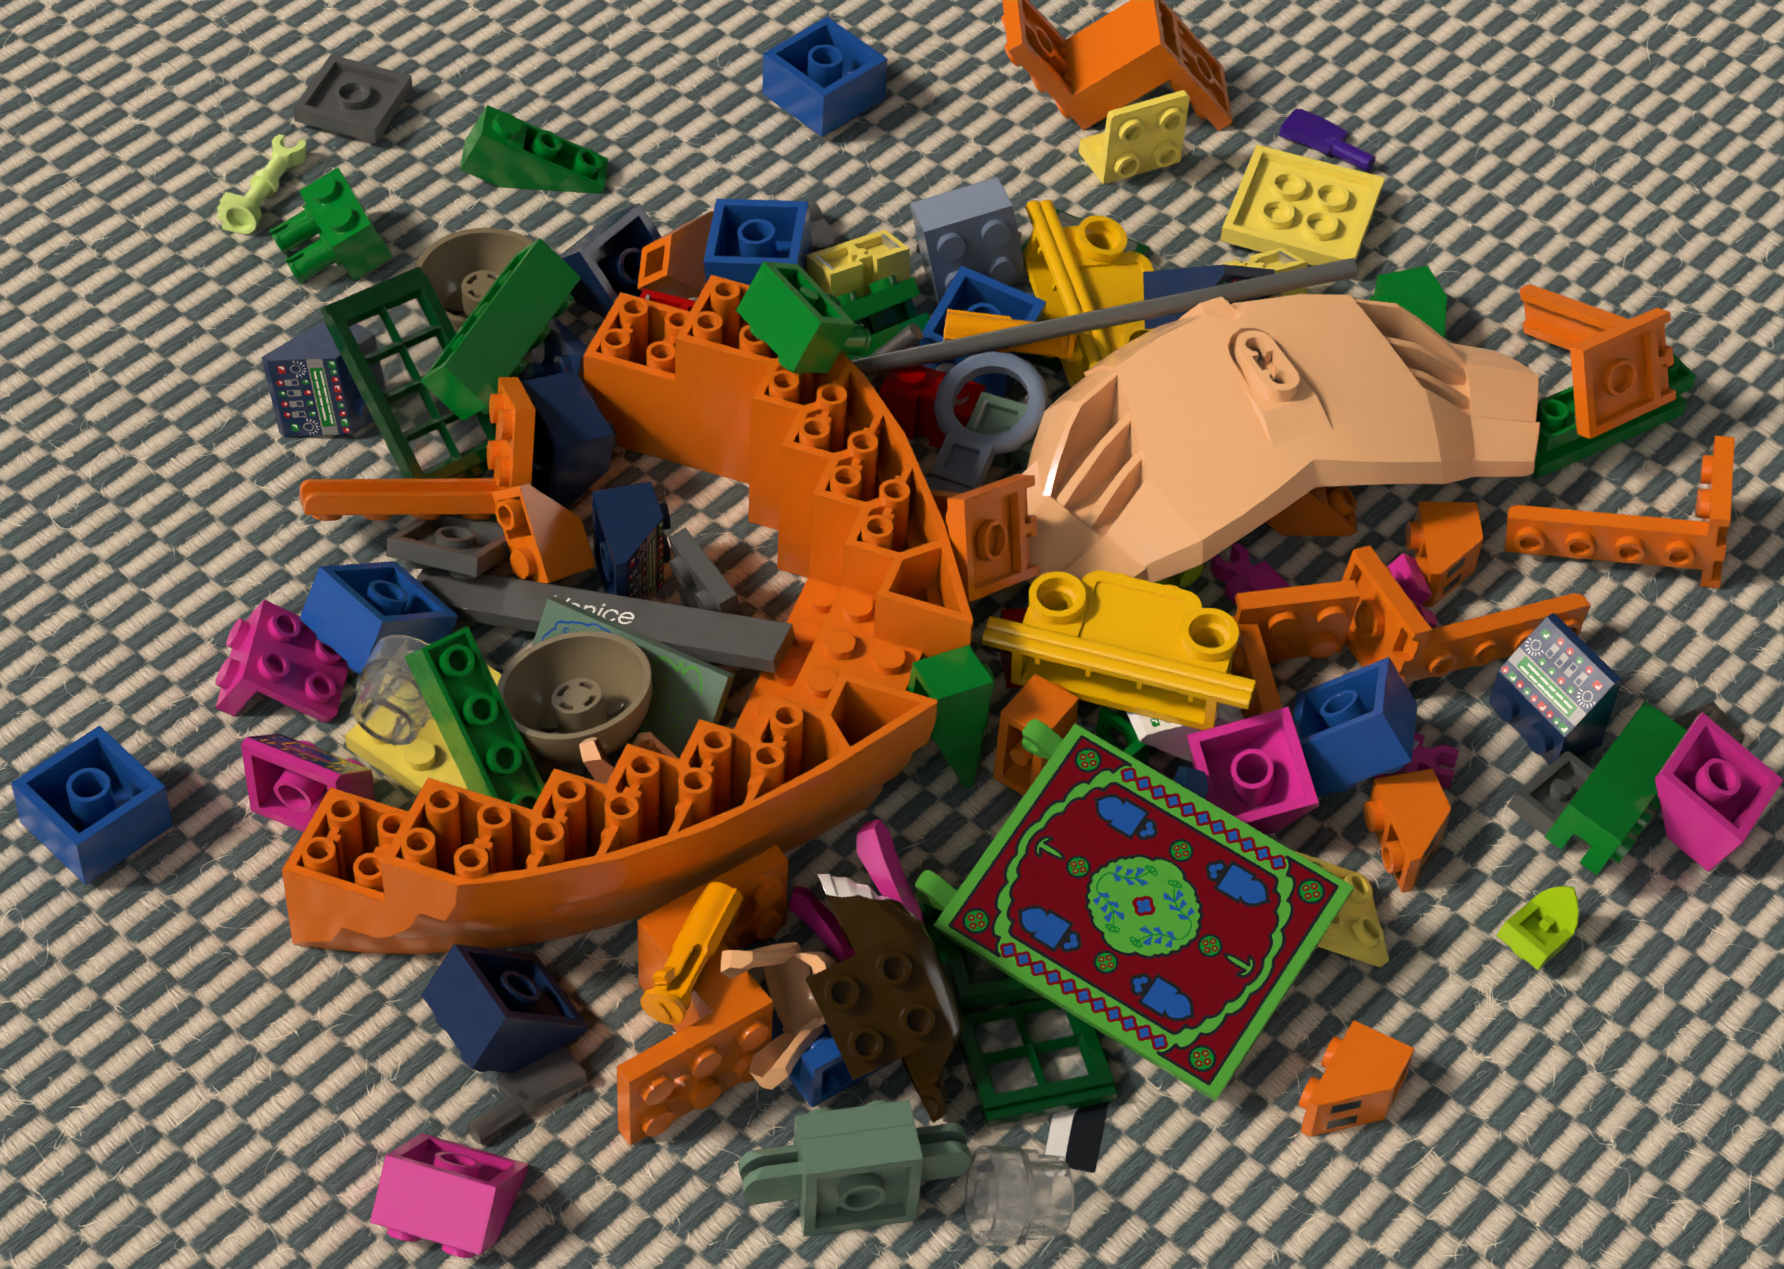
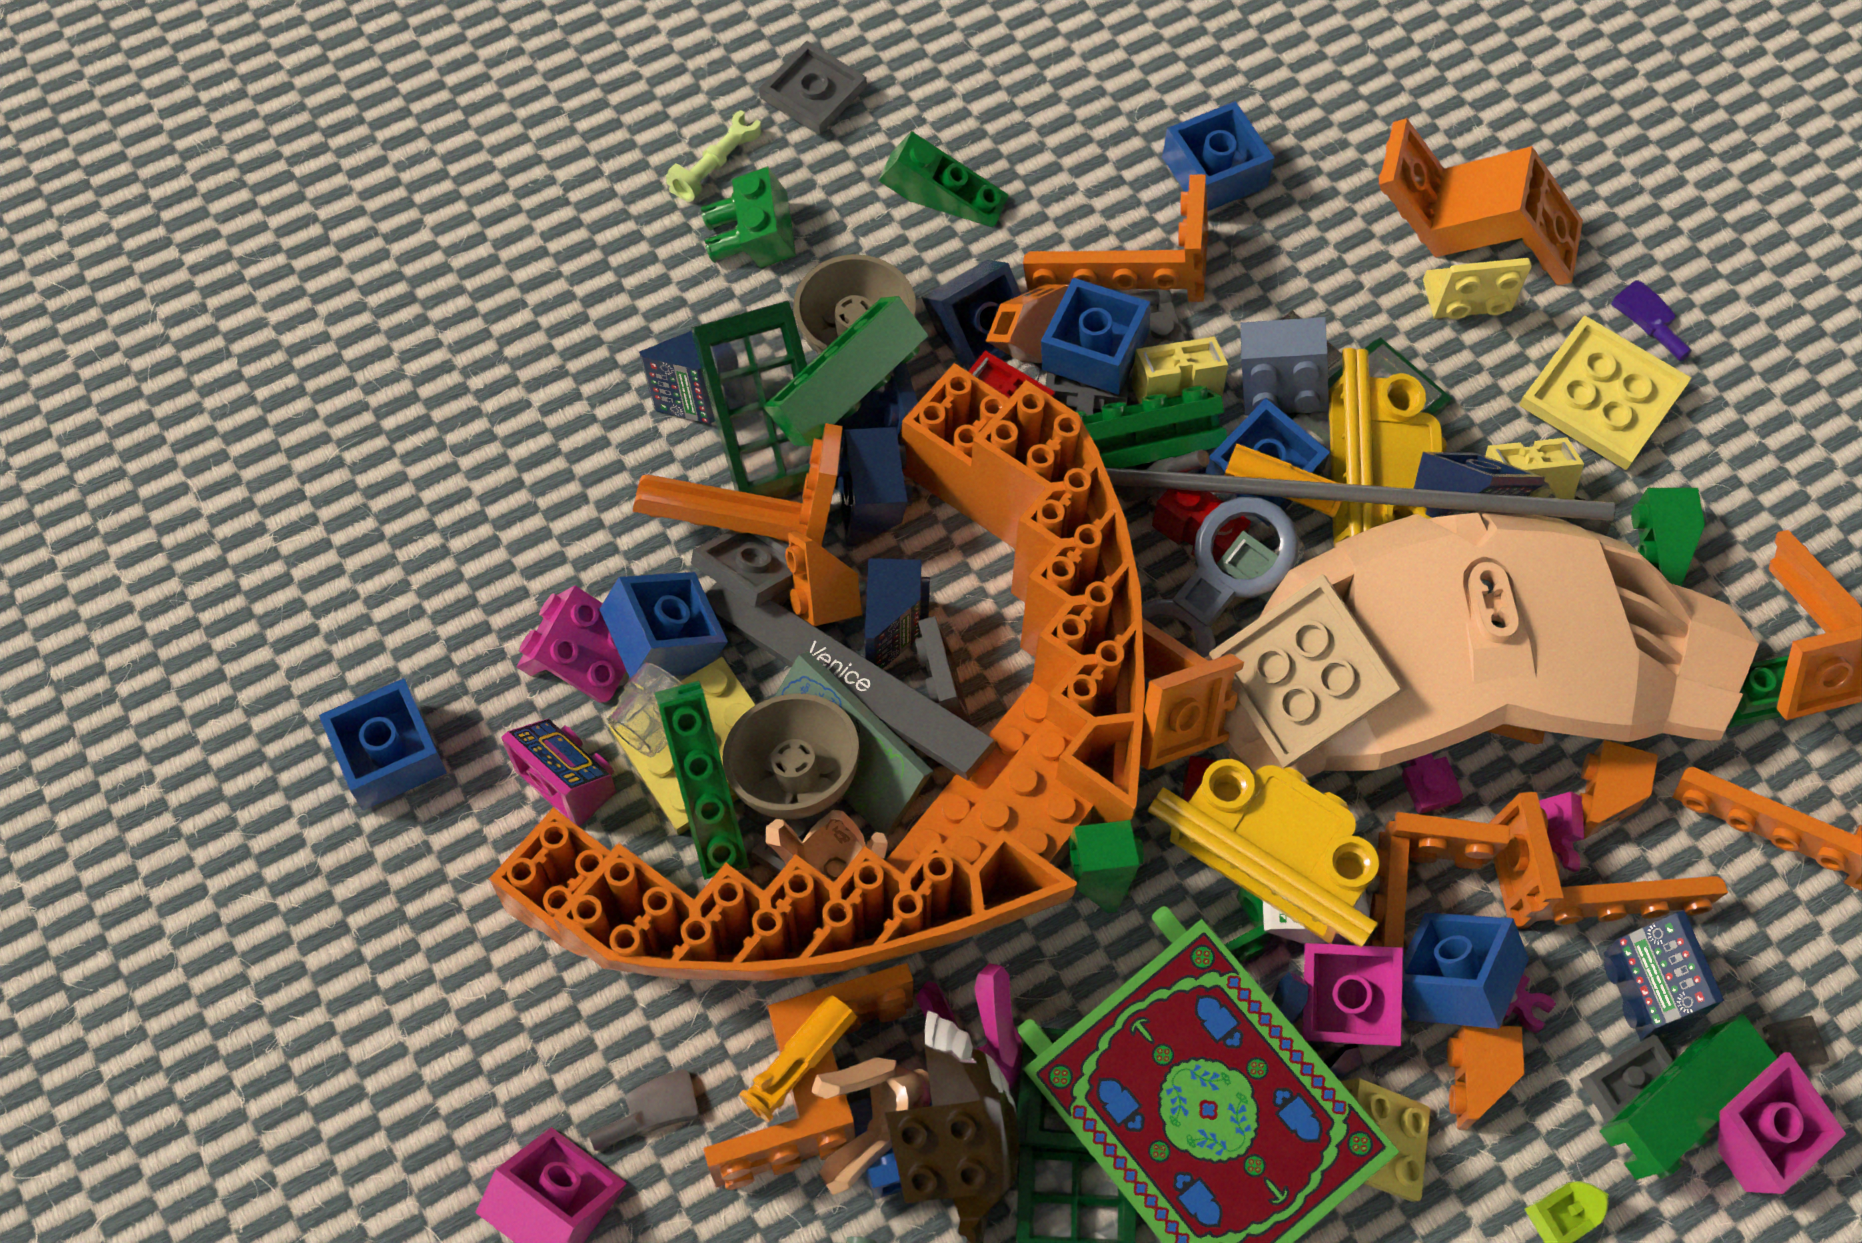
camera: 20 degrees right, 15 degrees up
(501, 1008) = (647, 1034): dark blue slope -> none
(799, 319) = (1079, 460): green brick -> none
(813, 180) = (1136, 267): none -> orange bracket
(1039, 701) = (1182, 886): orange brick -> none
(1103, 476) = (1307, 672): none -> tan plate

